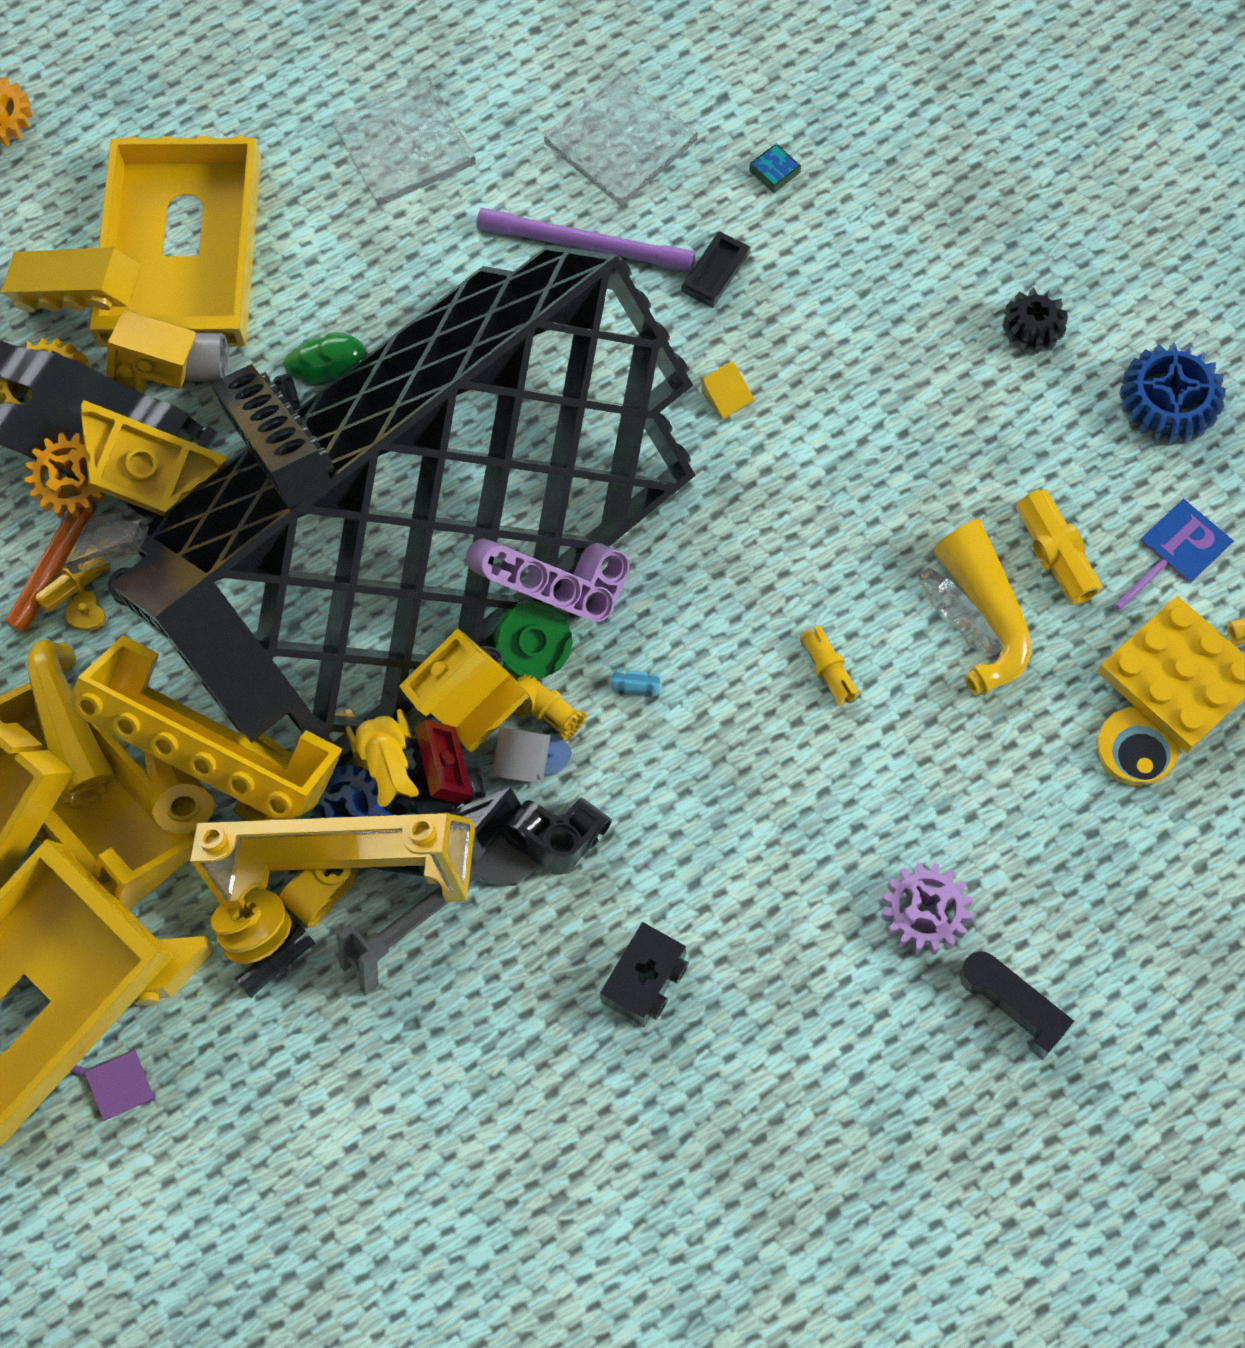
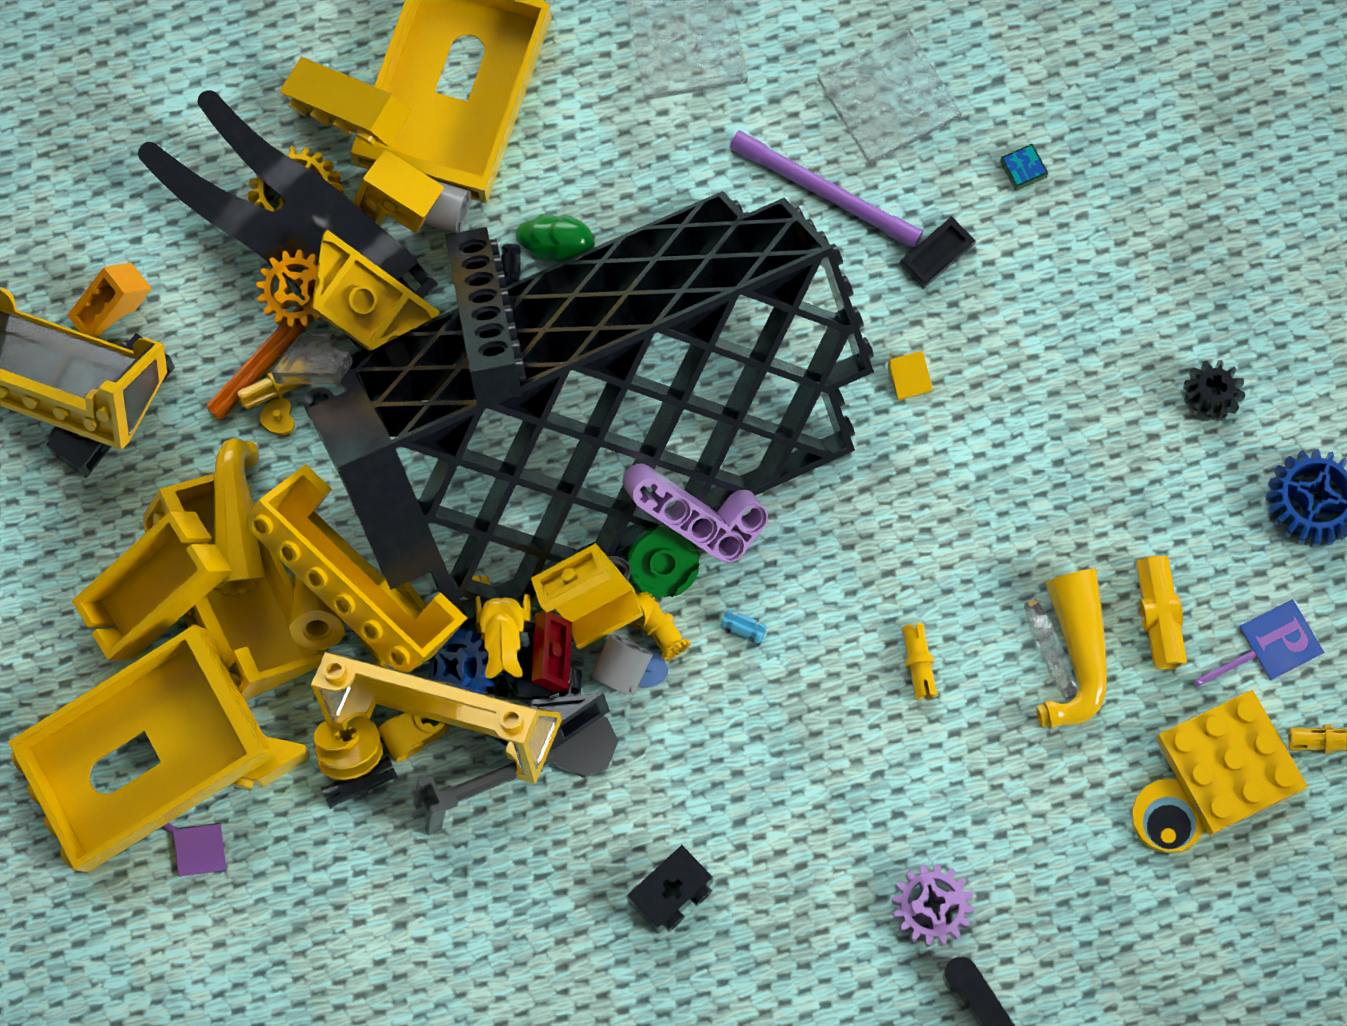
camera: 15 degrees right, 5 degrees up
(537, 830) = (615, 735): black piece -> none

